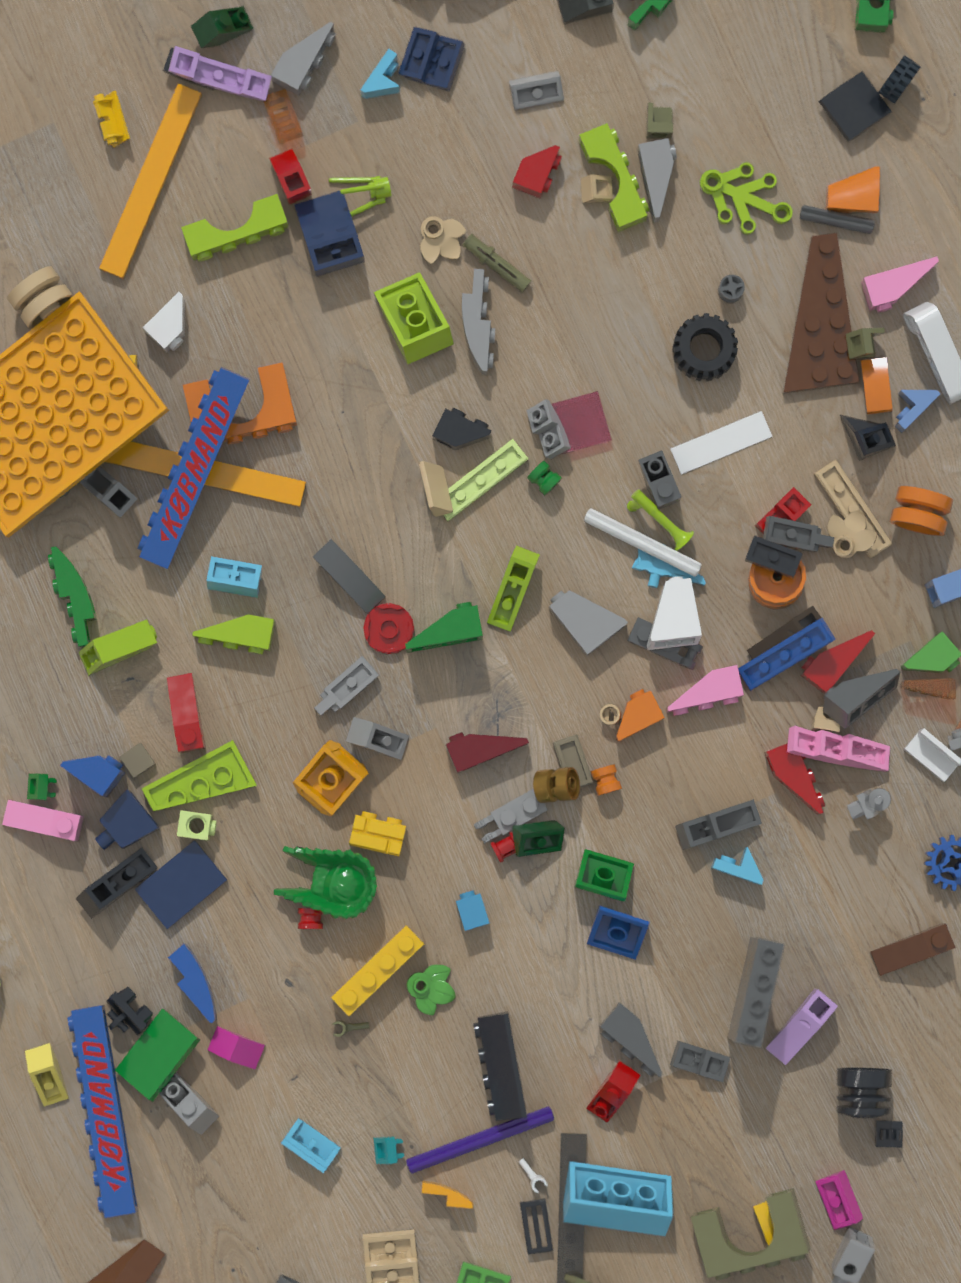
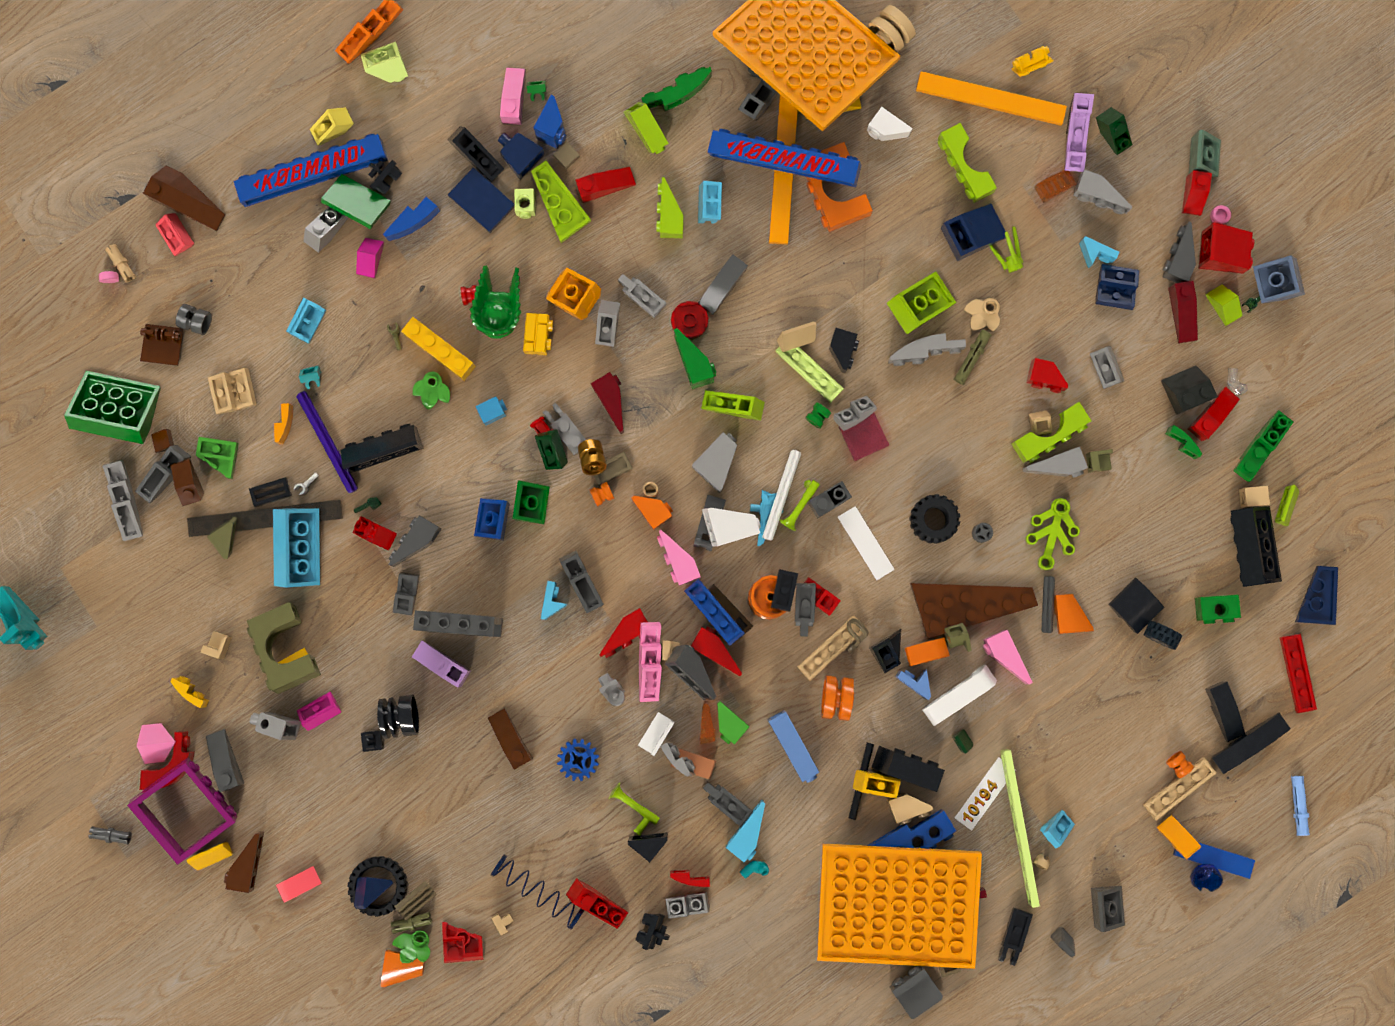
camera: 85 degrees right, 0 degrees up
(291, 176) = (1011, 197): red slope -> none
(571, 1088) = (374, 503): none -> clear green hand
(849, 471) = (862, 628): none -> dark tan piece
(852, 530) = (815, 648): tan plate -> none

